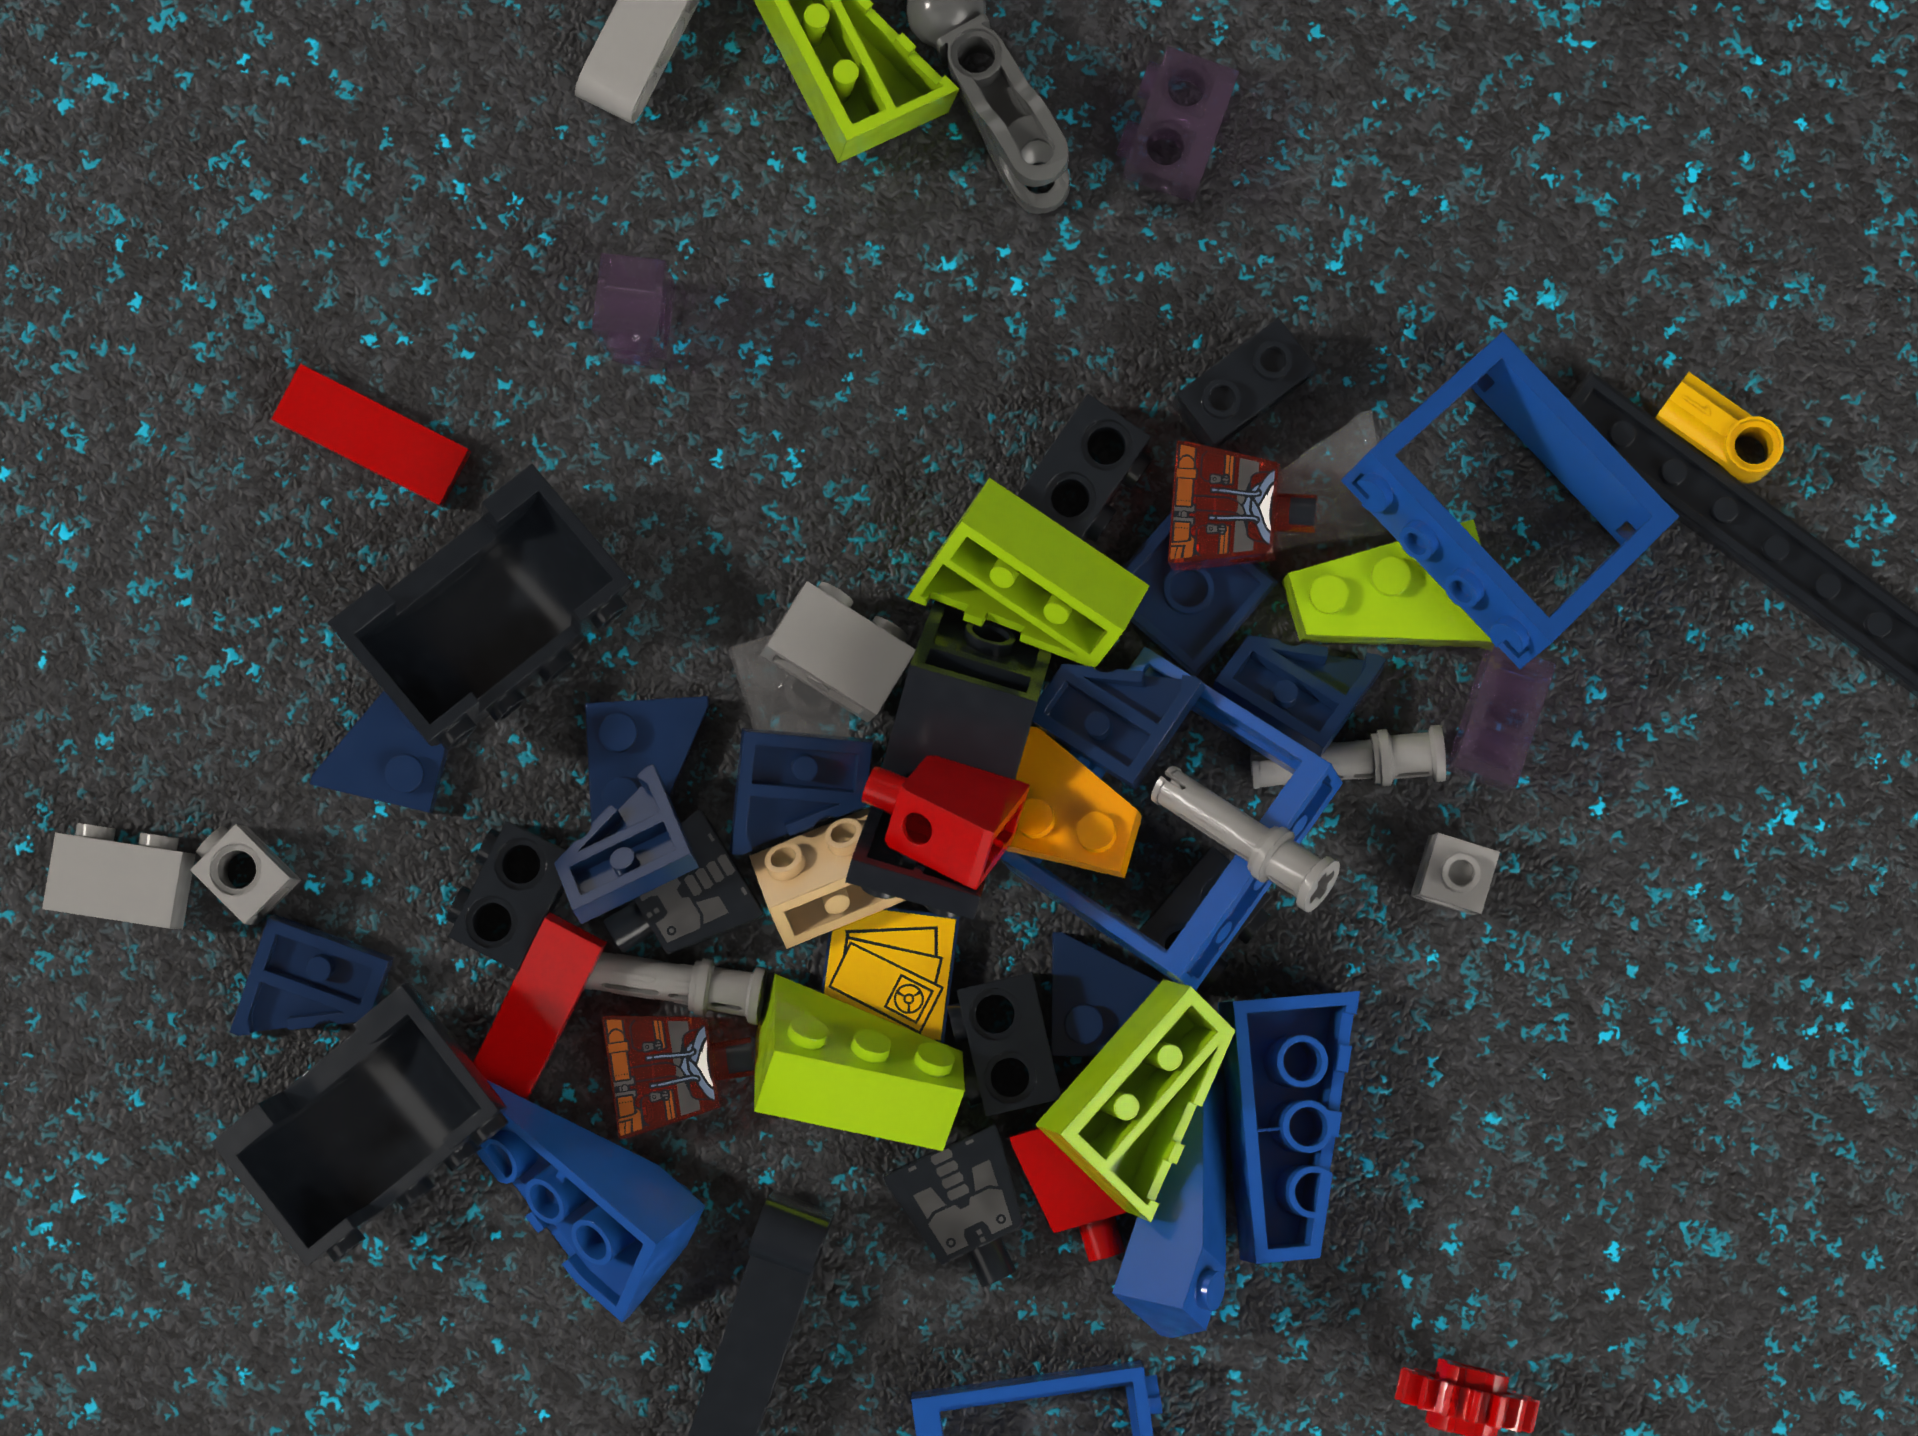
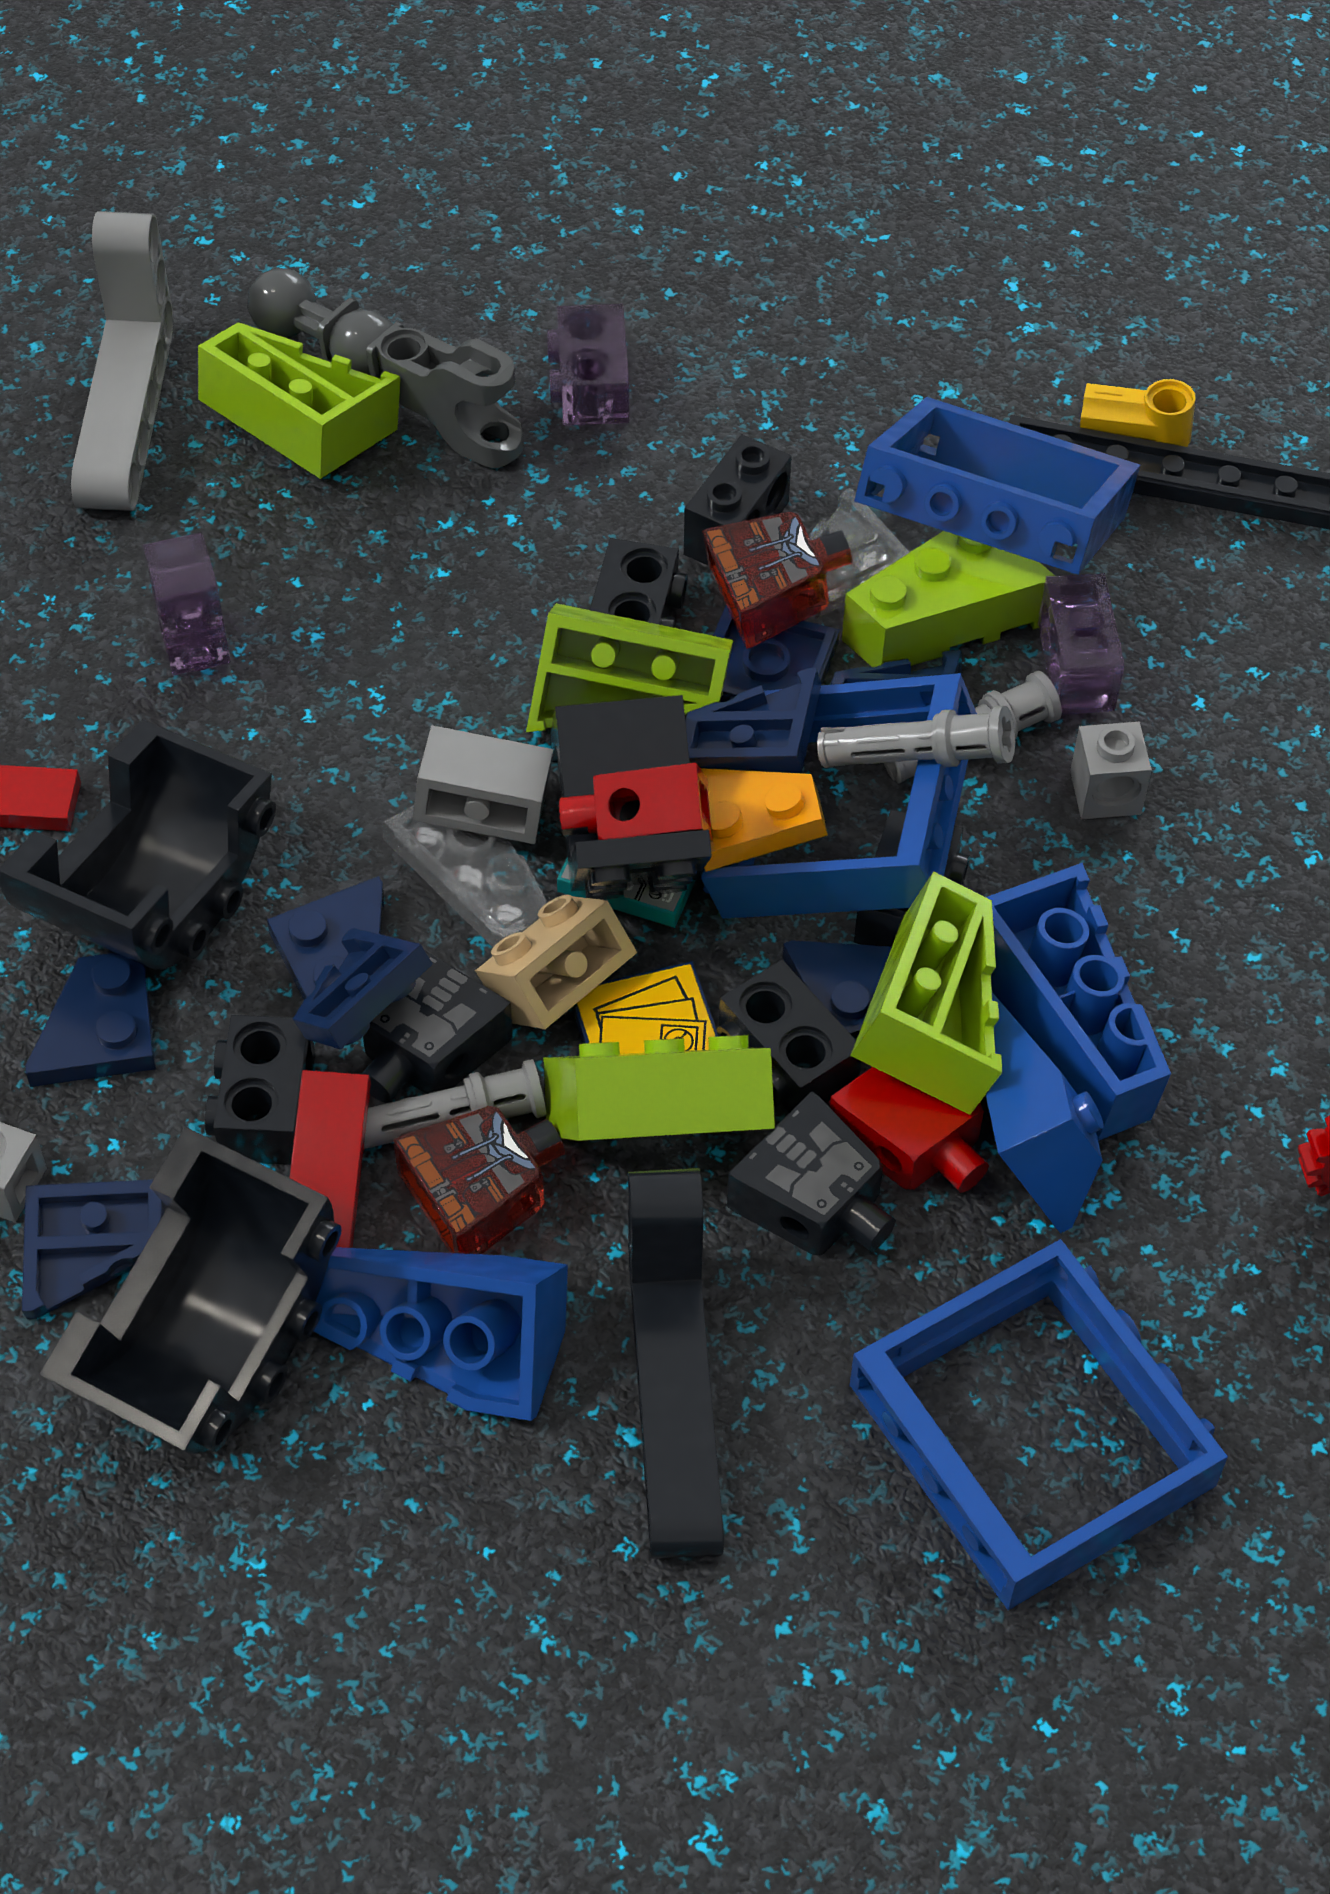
camera: 25 degrees left, 30 degrees down
(794, 782) = (490, 889): dark blue wing -> none

